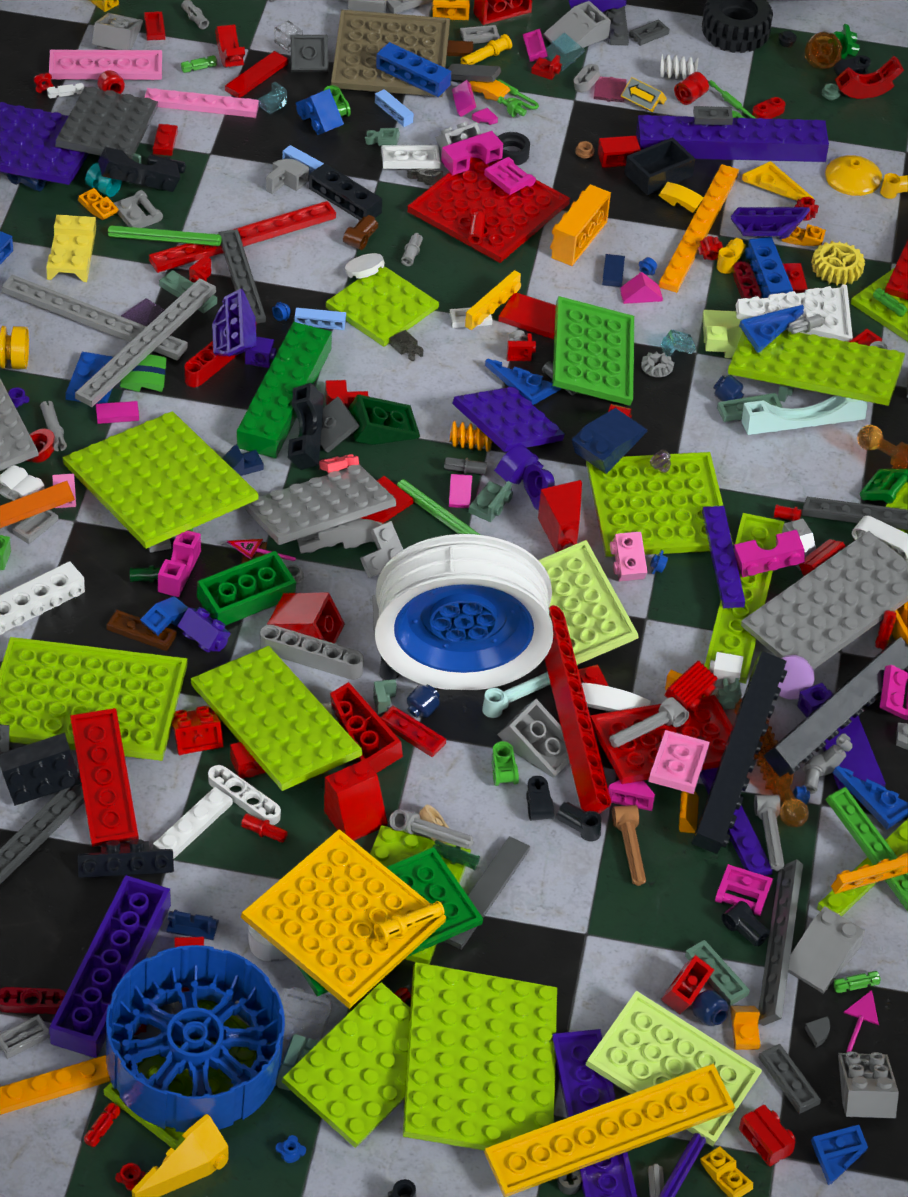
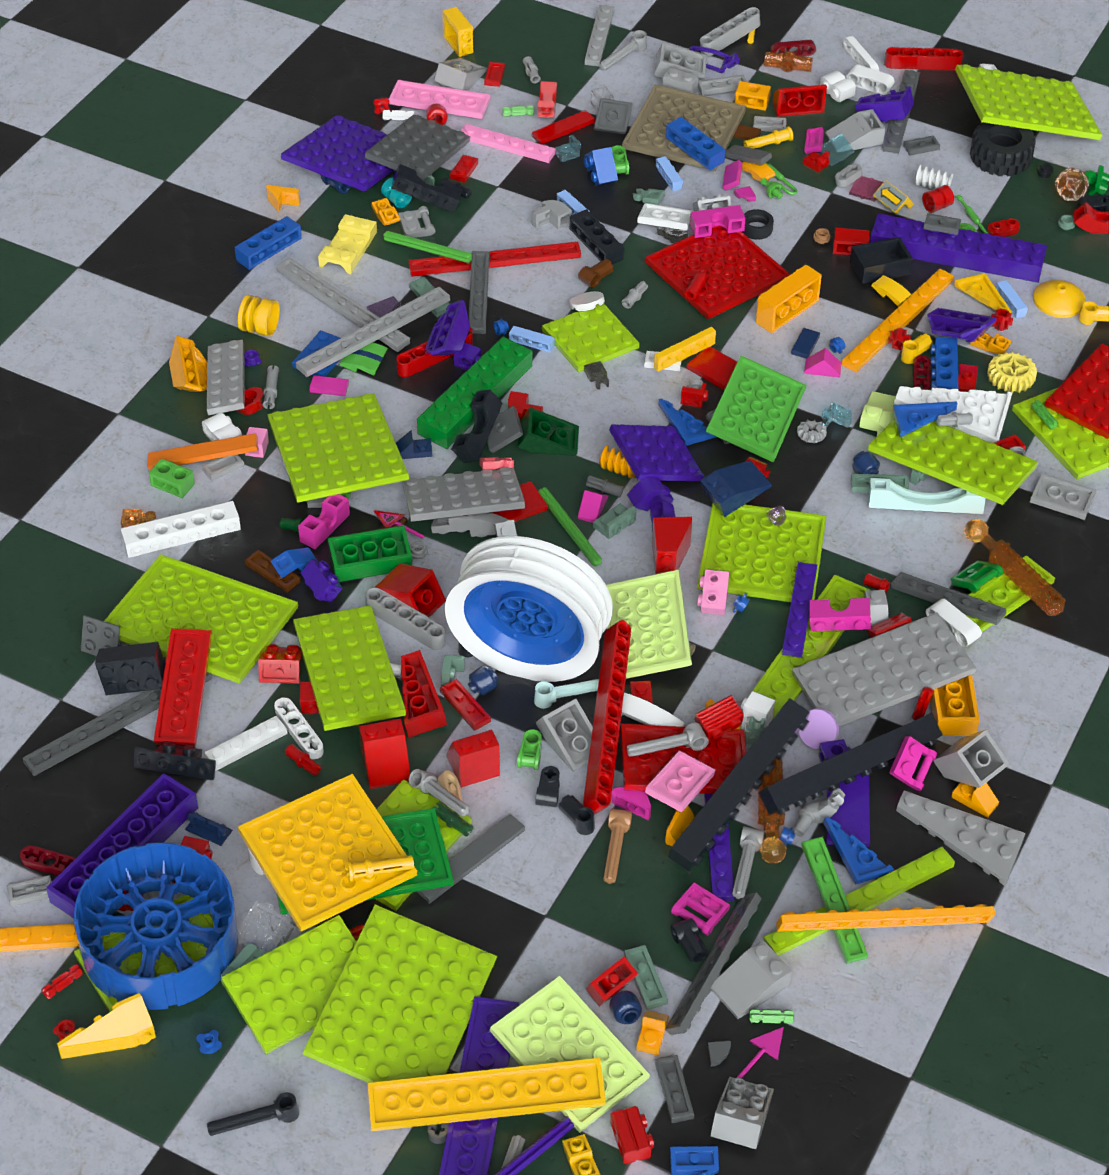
camera: 20 degrees right, 0 degrees up
(200, 269) = (446, 280): red bracket -> none
(452, 785) = (475, 758): none -> red slope
(509, 176) = (738, 248): dark pink plate -> none
(807, 183) = (1012, 299): none -> light blue piece

